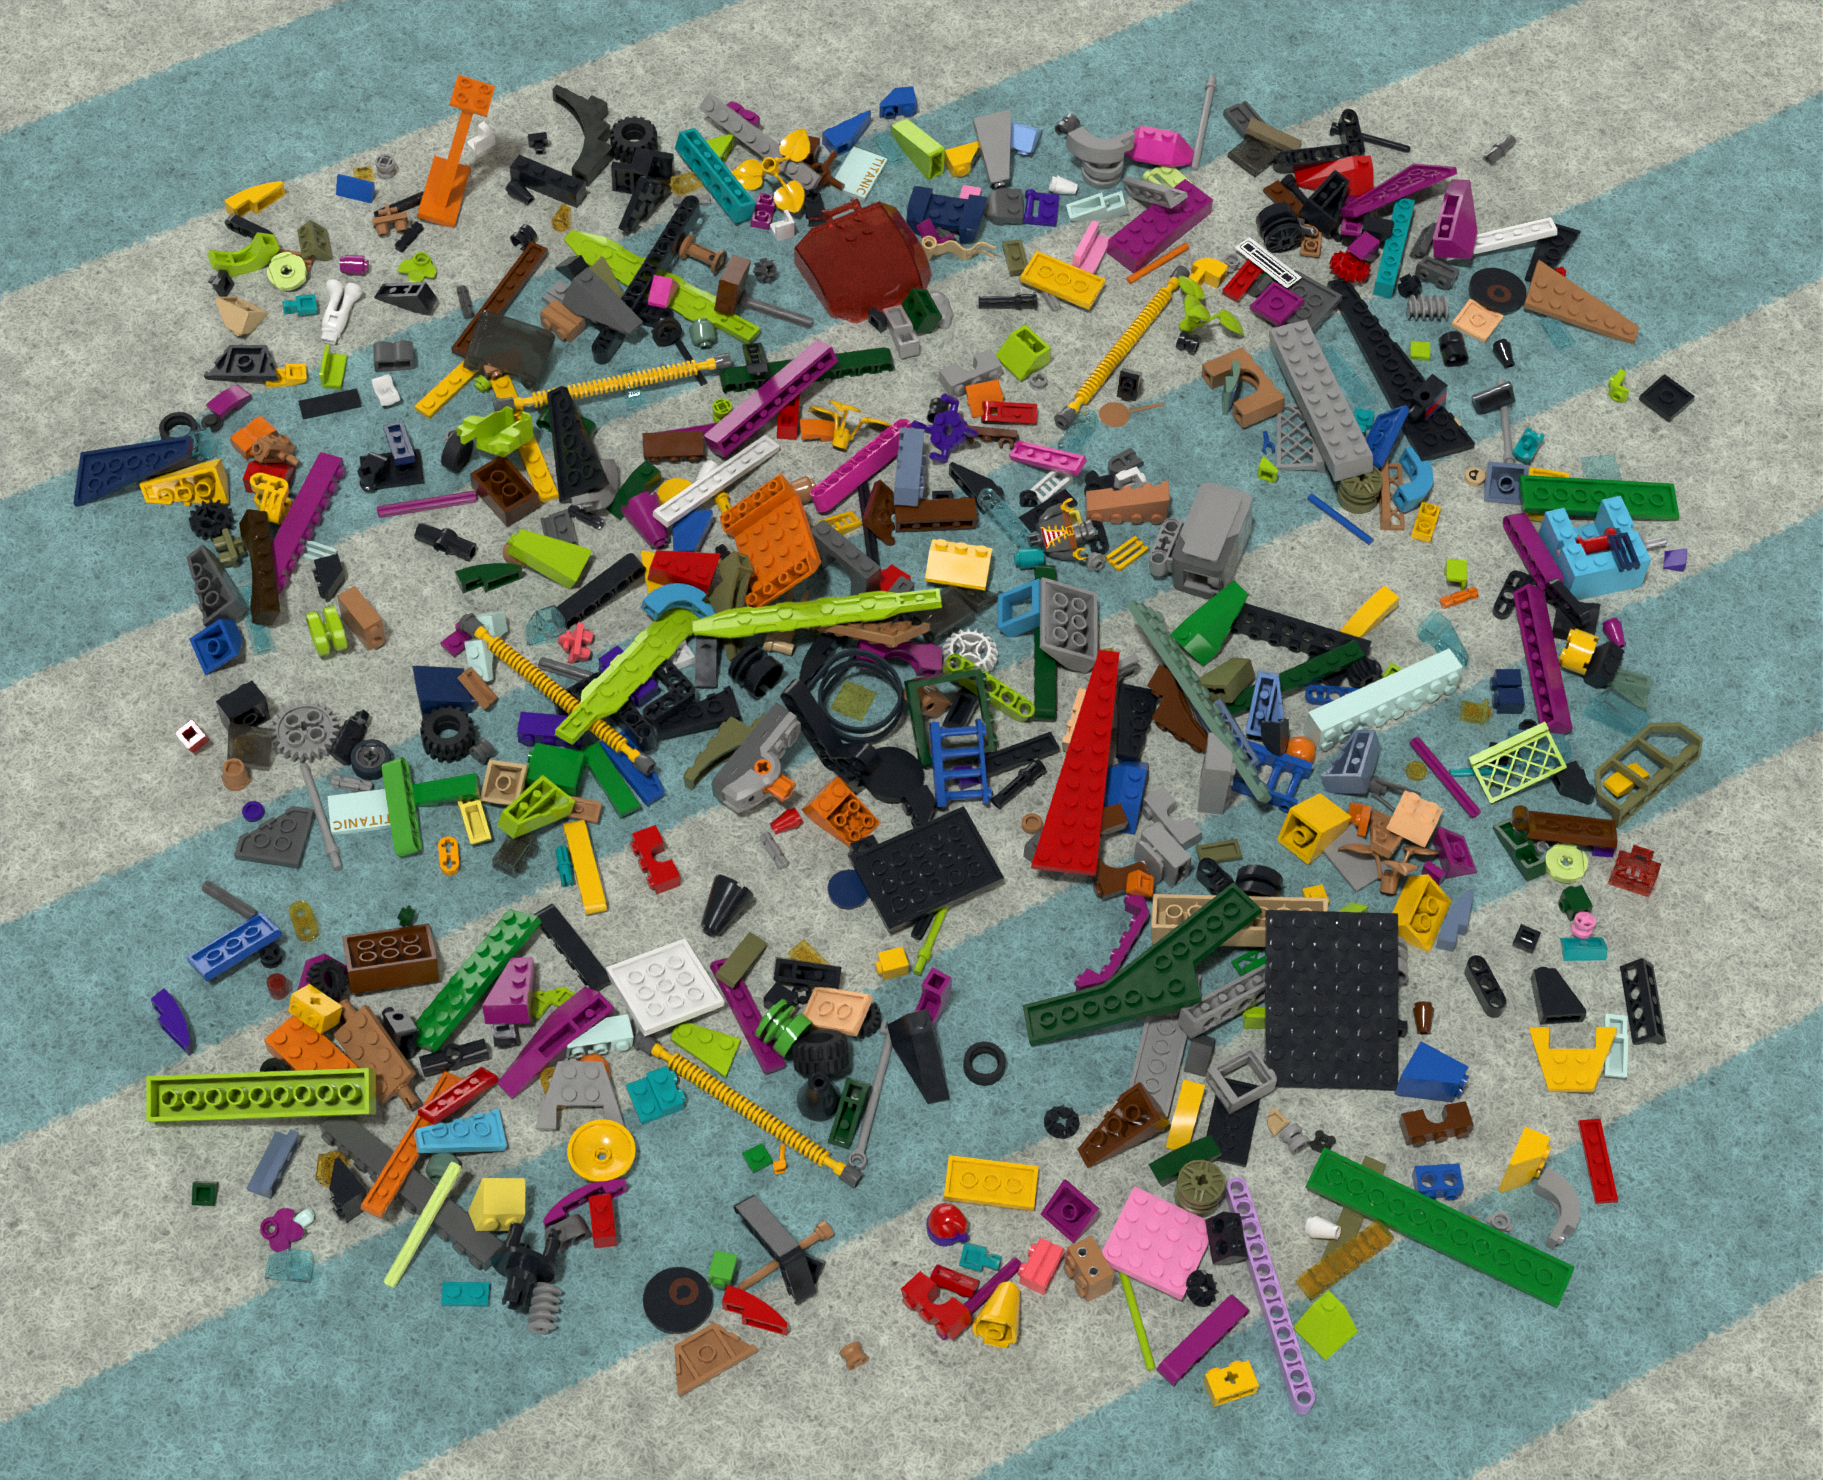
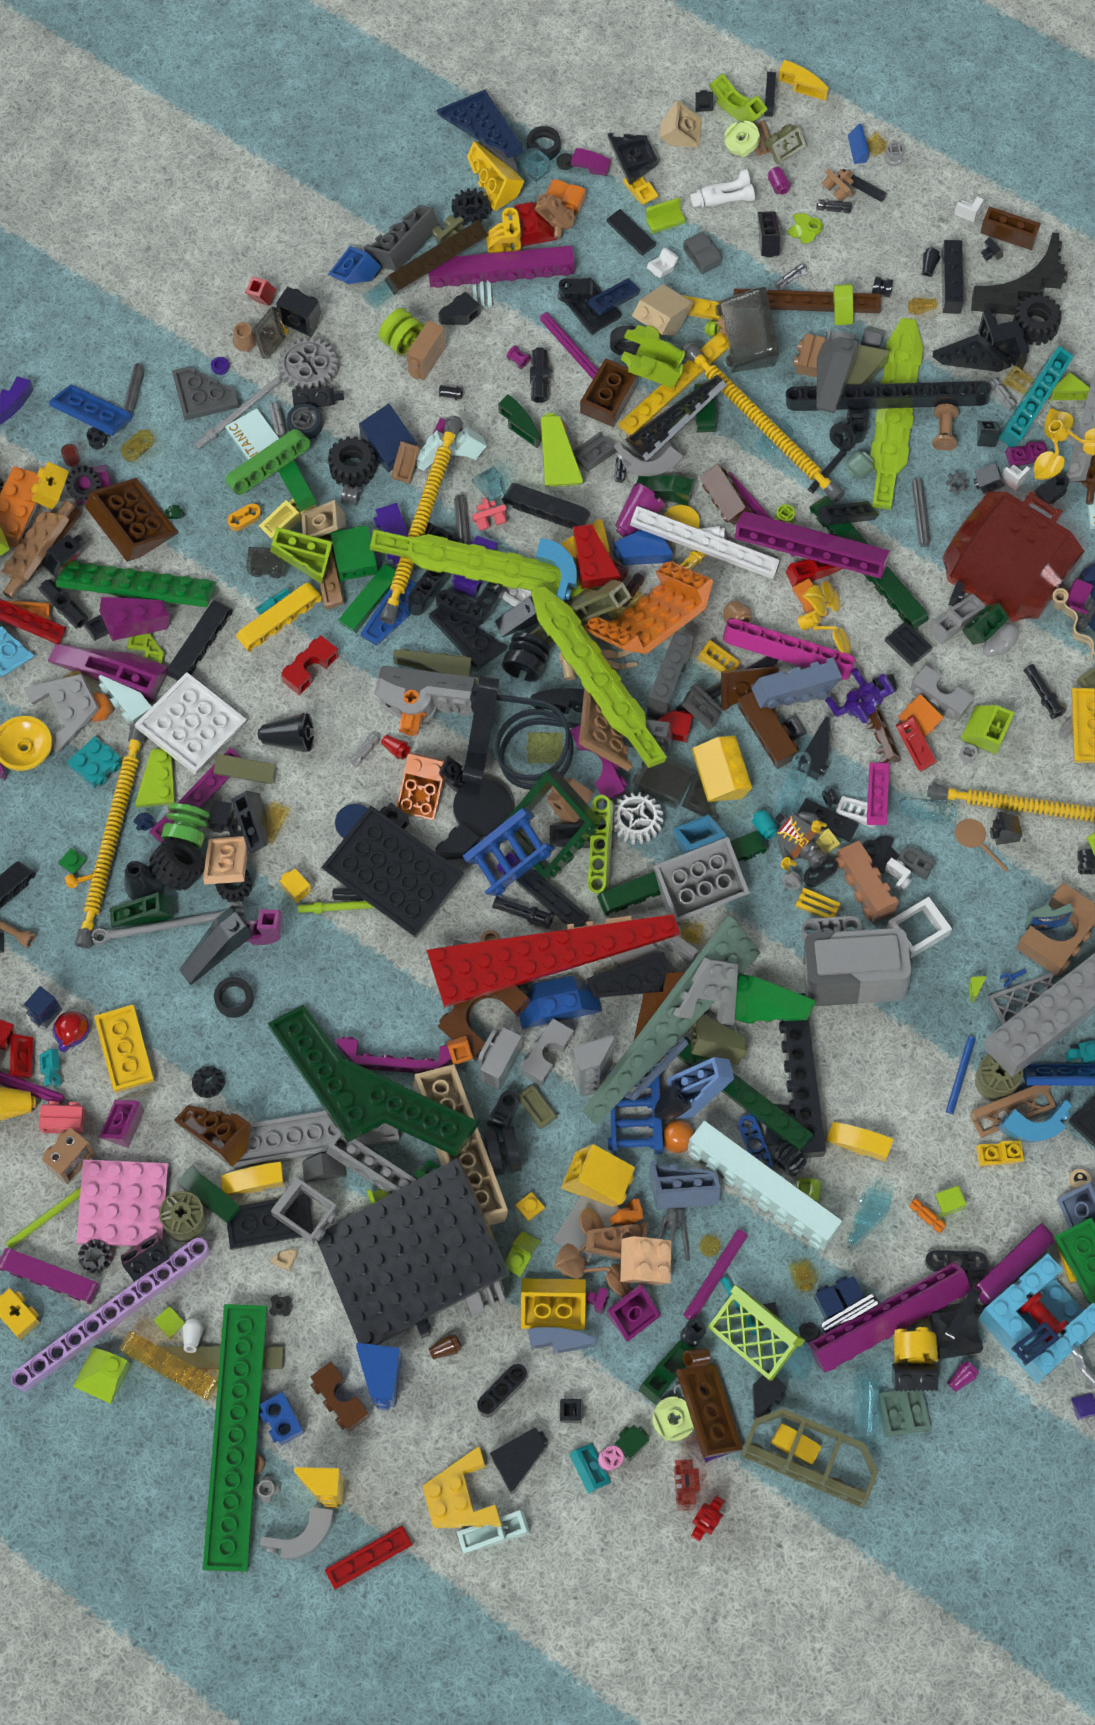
camera: 70 degrees right, 10 degrees up
(303, 305) = (716, 166): teal plate -> none
(413, 549) = (518, 357): none -> magenta bush
(419, 618) = (451, 392): none -> black pin
(446, 406) = (663, 310): none -> tan slope
(447, 176) = (912, 199): orange piece -> none
(526, 117) = (1010, 228): none -> reddish brown brick
(526, 270) = (843, 304): none -> lime slope
(662, 291) = (881, 412): dark pink slope -> none
(726, 227) = (987, 433): none -> black slope
(732, 285) = (917, 462): reddish brown brick -> none
(749, 1073) = (144, 821): none -> dark blue plate
(775, 245) = (988, 478): none -> brick
(886, 554) = (702, 706): none -> dark grey plate
(906, 376) = (908, 644): none -> black plate
(915, 1236) = (42, 1007): none -> dark blue piece
(1184, 471) = (935, 917): none -> white window
(1187, 653) = (716, 982): none -> light grey wing
(1294, 1138) = (268, 1281): light grey wheel -> none
(1297, 1247) = (169, 1322): none -> lime slope
(1493, 813) = (693, 1332): none -> black wheel
(1527, 685) = (850, 1312): none -> axle
(1650, 1002) = (557, 1546): black fence -> none
(1672, 869) = (707, 1518): none -> red gear

